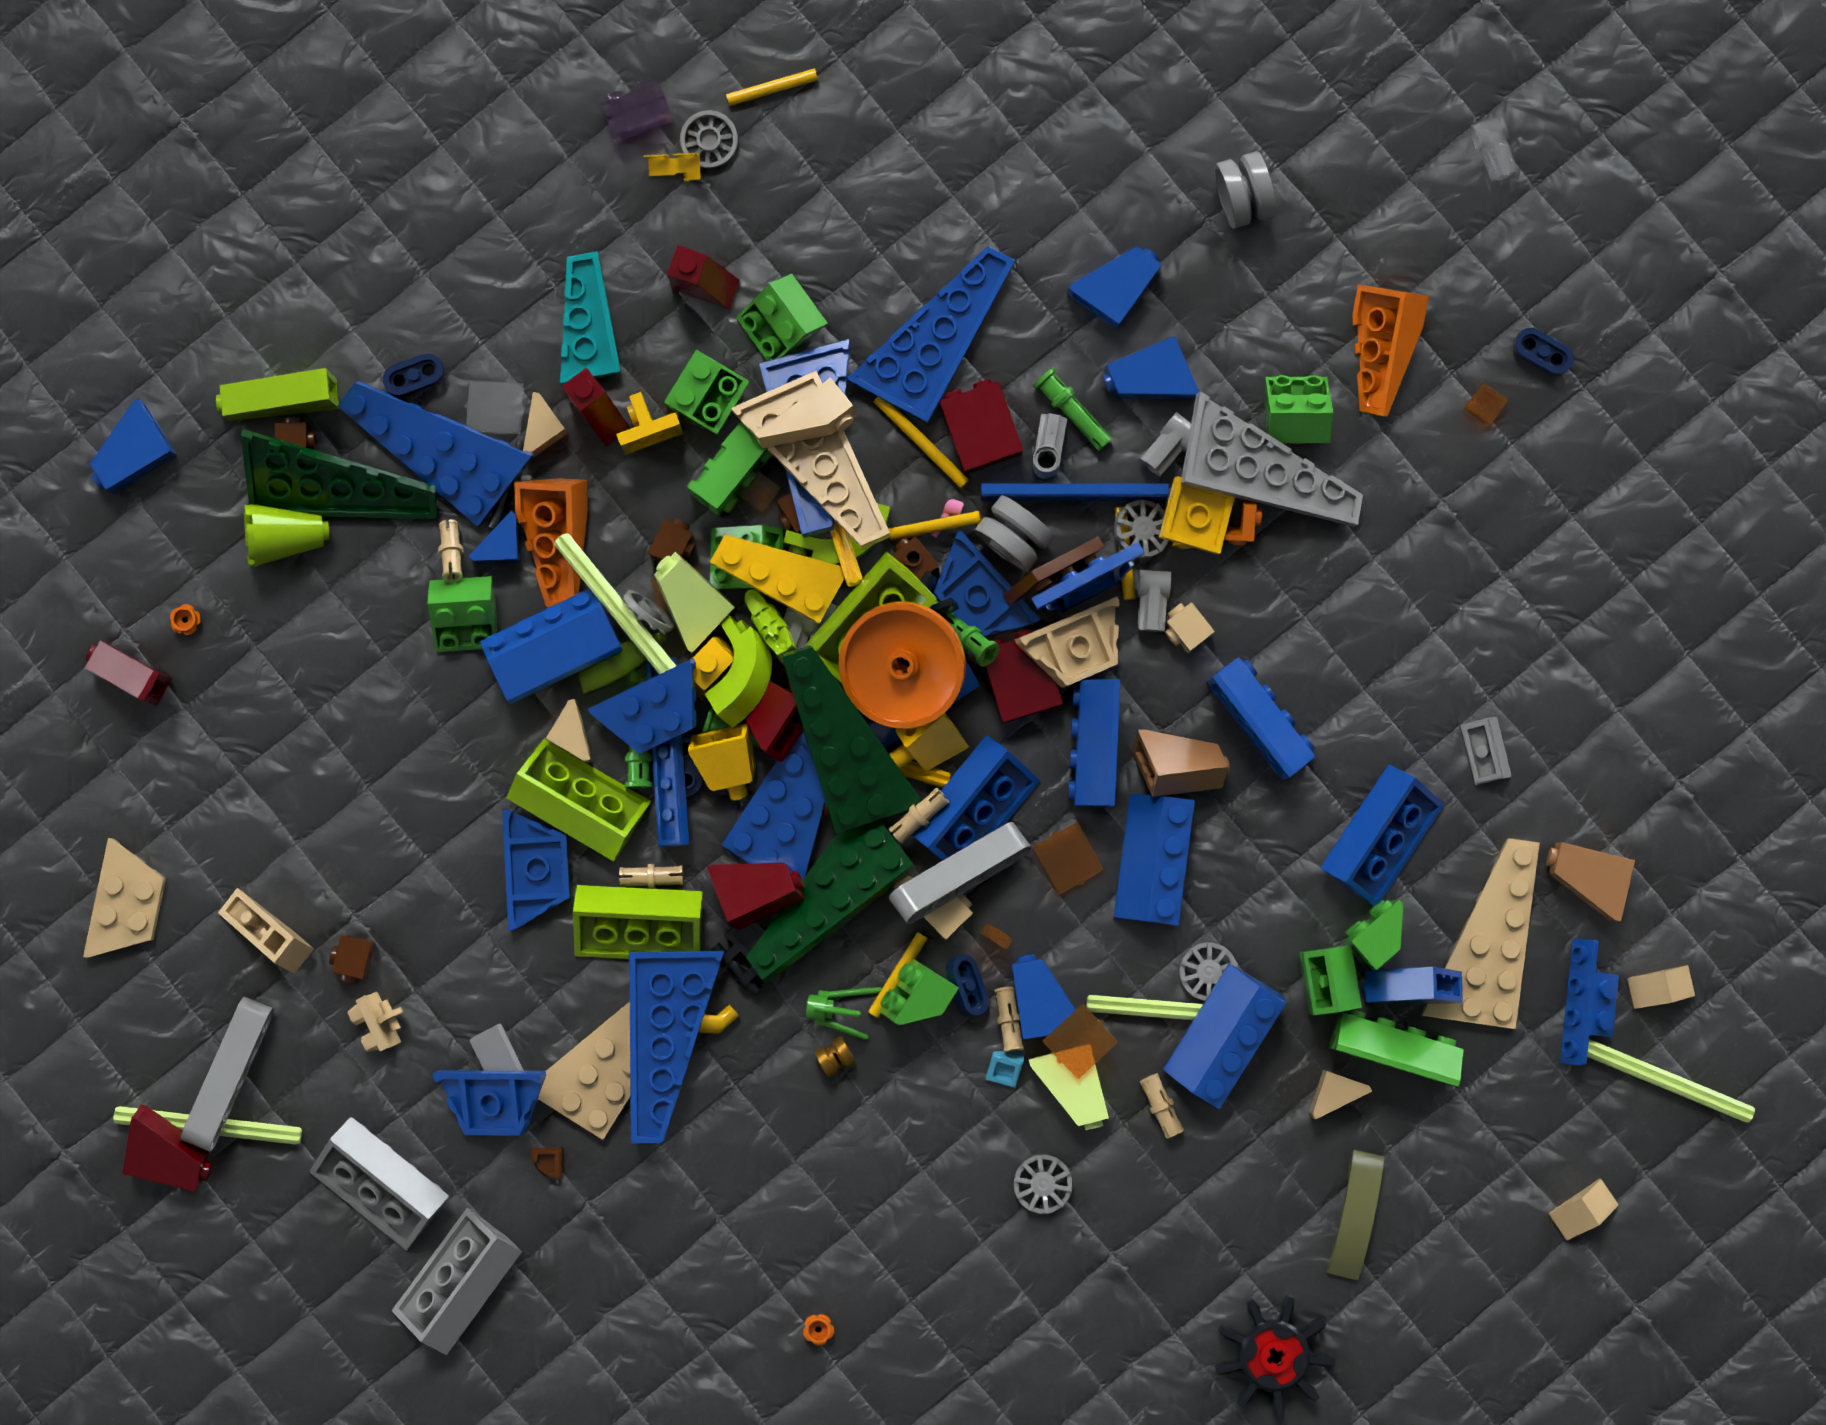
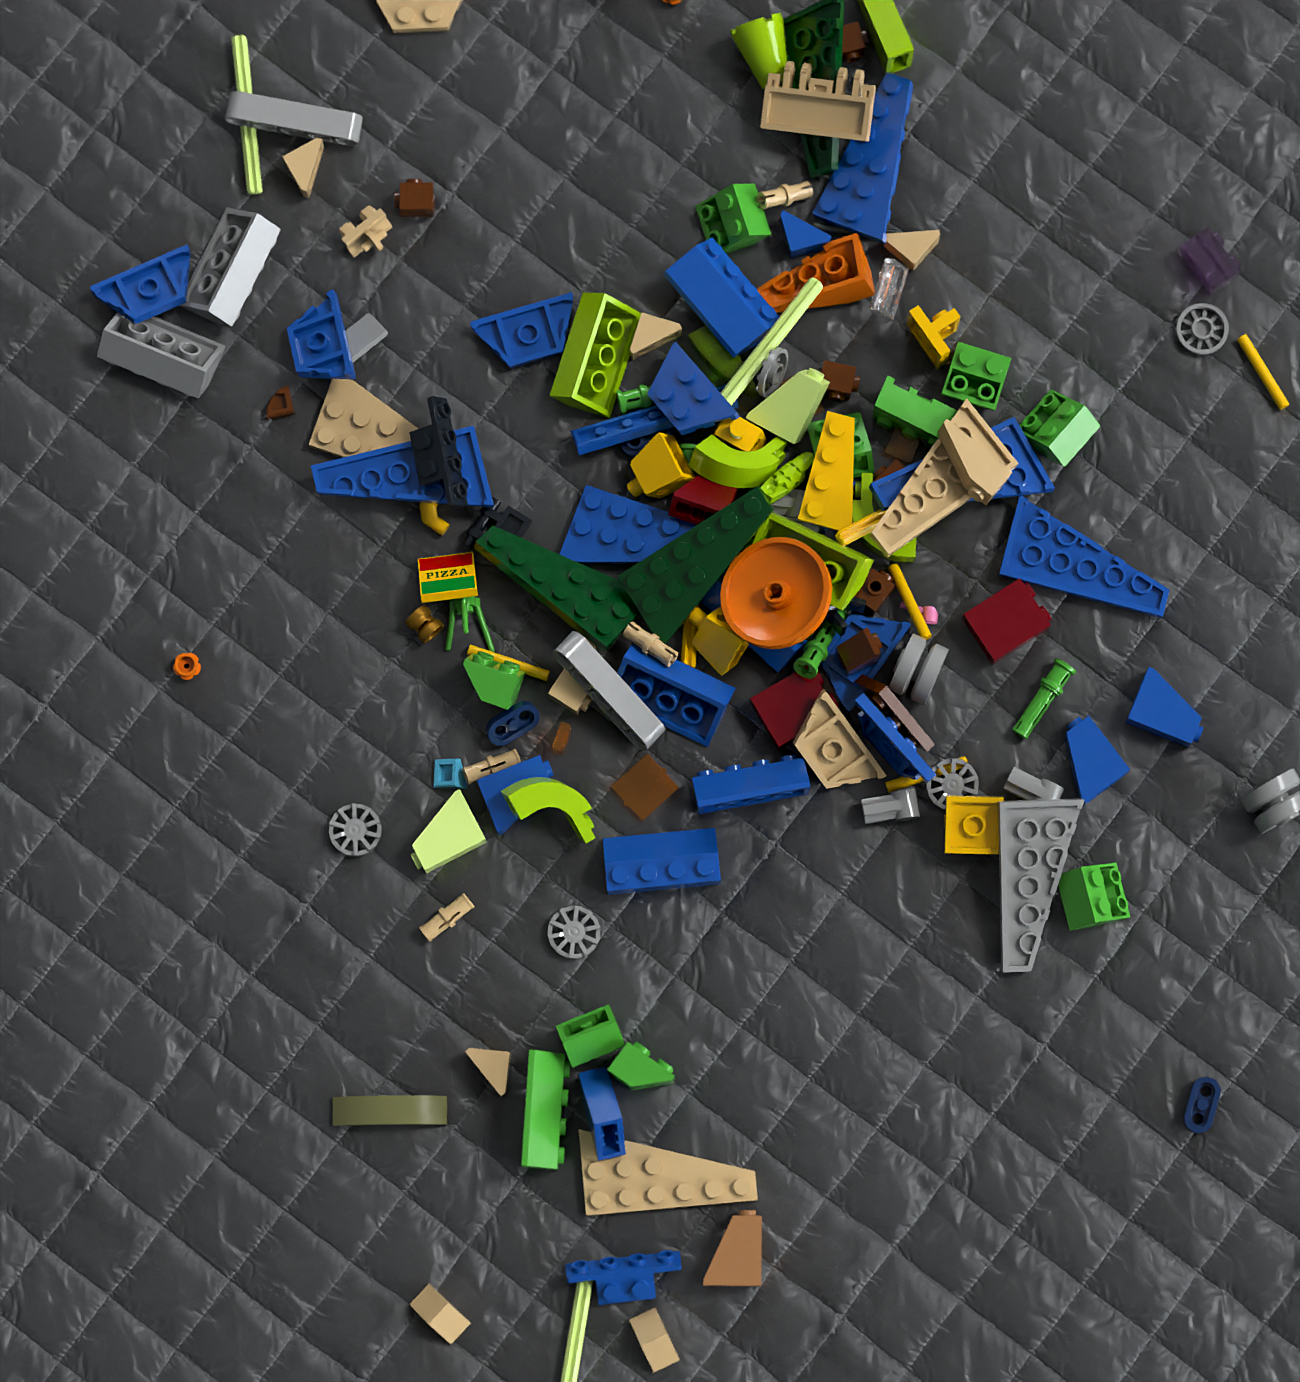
camera: 85 degrees right, 5 degrees down
(160, 1155) = (212, 79): dark red slope -> none
(265, 931) = (421, 122): tan slope -> none
(283, 1074) = (304, 164): none -> tan slope
(364, 491) = (815, 107): none -> tan hinge
(380, 1279) = (148, 287): none -> blue wing
(414, 375) = (931, 129): dark blue plate -> none
(495, 407) = (920, 204): clear piece -> none
(583, 463) = (889, 289): none -> clear plate
(587, 321) = (1004, 266): teal wing -> none
(595, 406) = (940, 283): dark red slope -> none
(627, 920) = (503, 427): lime slope -> none
(651, 876) = (544, 432): tan pin -> none
(653, 999) = (437, 453): none -> black bracket
(685, 163) = (1175, 314): yellow piece -> none
(702, 277) = (1076, 348): dark red slope -> none
(755, 890) = (551, 519): dark red slope -> none
(790, 1020) = (447, 577): none -> tile
(922, 442) = (981, 575): yellow bar -> none
(982, 591) = (859, 651): none -> reddish brown slope
(1049, 443) = (1008, 684): light grey piece -> none
(1056, 970) = (541, 792): none -> lime arch
(1075, 492) = (969, 714): blue tile -> none
(1080, 1041) = (485, 829): clear orange piece -> none
(1142, 1007) = (533, 914): yellowish green axle -> none
(1179, 763) = (750, 862): medium nougat slope -> none
(1187, 627) = (873, 842): tan brick -> none
(1224, 1035) = (520, 954): blue slope -> none
(1250, 518) = (983, 874): orange bracket -> none
(1261, 718) = (808, 924): blue slope -> none
(1292, 1361) = (233, 1064): black gear -> none
(1382, 835) = (730, 1057): blue slope -> none
(1387, 336) = (1183, 961): orange wedge -> none
(1485, 404) = (1141, 1065): clear orange tile -> none
(1486, 750) = (829, 1135): light grey slope -> none

